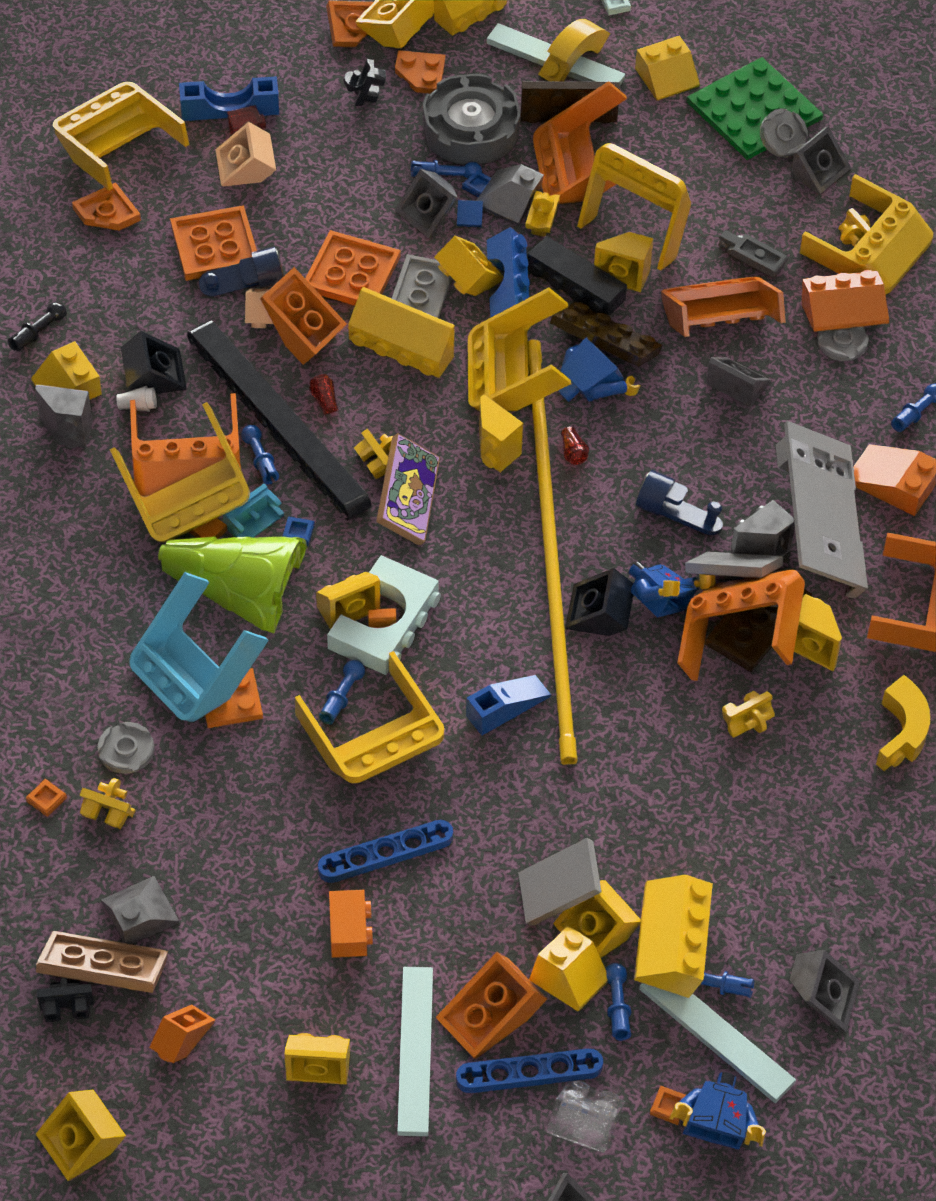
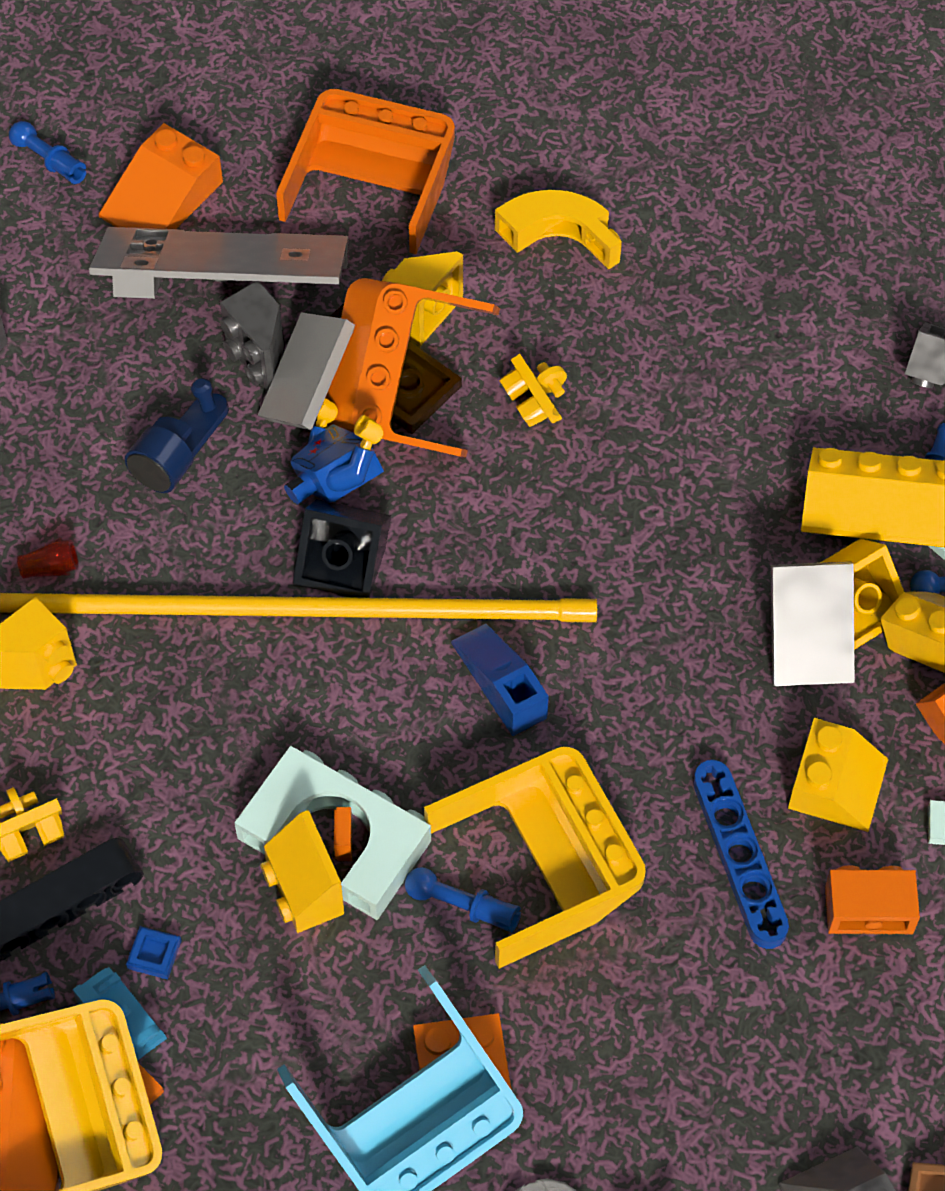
camera: 85 degrees left, 5 degrees up
(242, 572) = (233, 1023): lime cone -> none
(408, 489) = (106, 782): tile -> none
(445, 907) = (838, 776): none -> yellow slope

